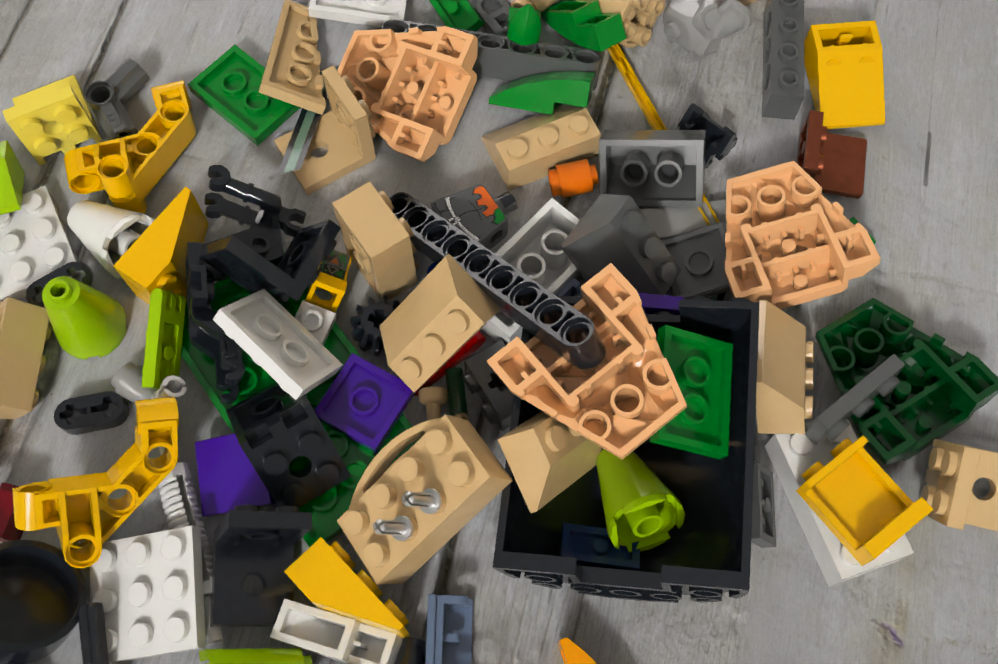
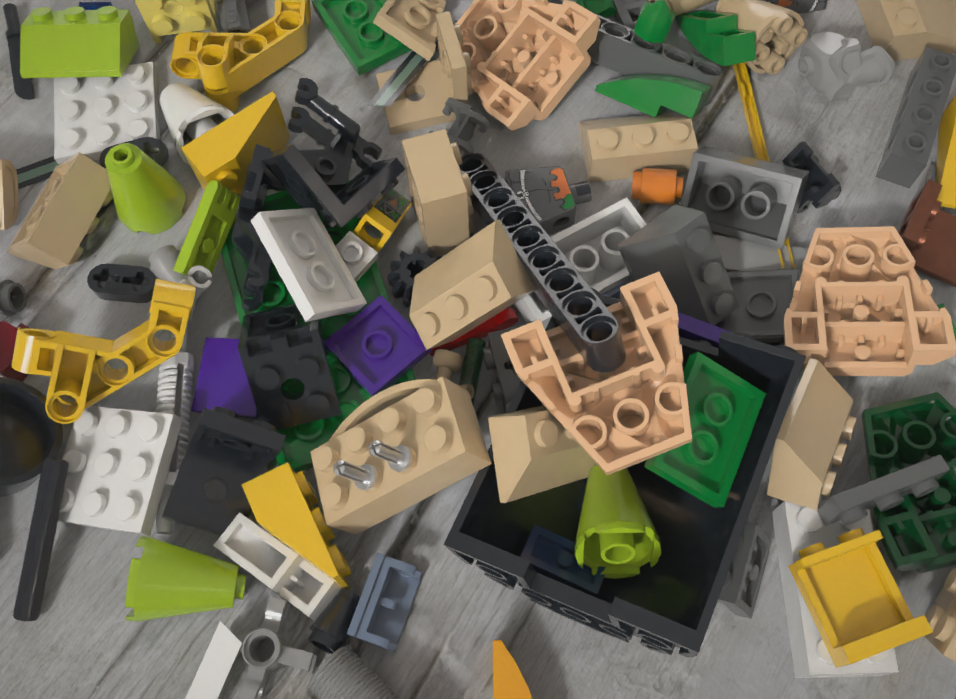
camera: 20 degrees right, 0 degrees up
(374, 169) = (464, 124): none -> dark grey piece

